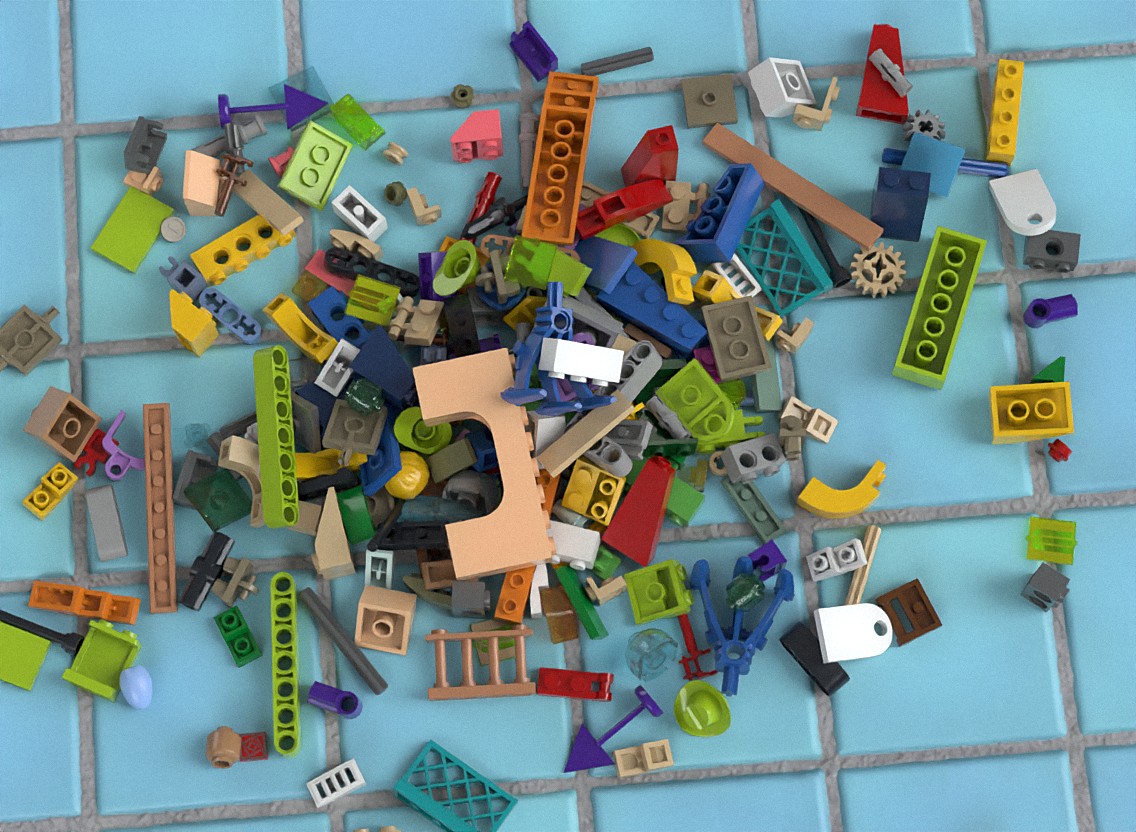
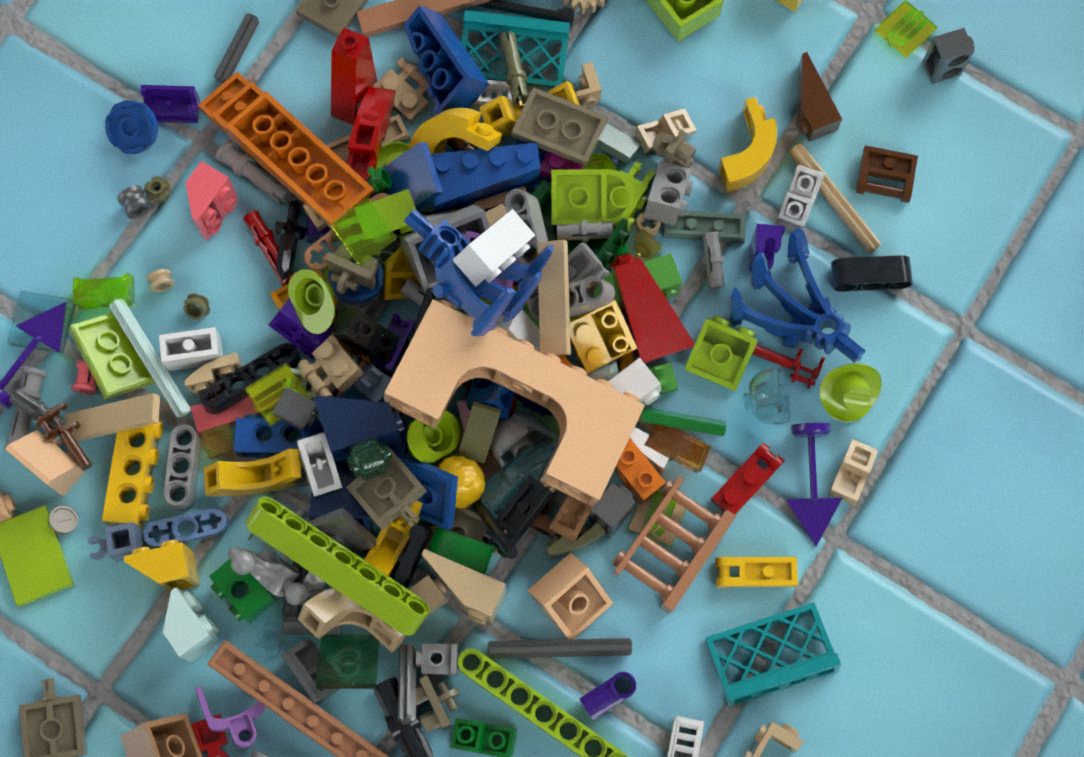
camera: 55 degrees left, 0 degrees up
(159, 371) = (187, 628): none -> light aqua slope
(215, 403) = (251, 605): none -> green brick
(233, 551) = (407, 684): none -> dark grey axle
(239, 395) = (274, 575): none -> light grey piece
(271, 568) = (446, 667): none -> light grey brick
(275, 267) = (177, 455): none -> light grey beam
(331, 192) = (150, 358): none -> light aqua axle
(366, 318) = (295, 409): none -> dark grey brick
(380, 568) = (523, 569): light aqua slope -> none
(420, 208) = (224, 296): tan bracket -> none
(439, 88) = (134, 201): none -> dark grey wheel
(493, 40) = (131, 126): none -> blue tile
(508, 742) = (757, 572): none -> yellow plate
(585, 243) = (379, 180): none -> green plate
(610, 589) = (688, 388): tan bracket -> none
(728, 532) = (713, 260): none -> light grey pin
(745, 592) = (783, 280): clear green head -> none
(752, 276) = (515, 75): none -> olive pin
(849, 632) = (874, 229): white tile -> none
(920, 515) = (815, 106): none -> reddish brown slope

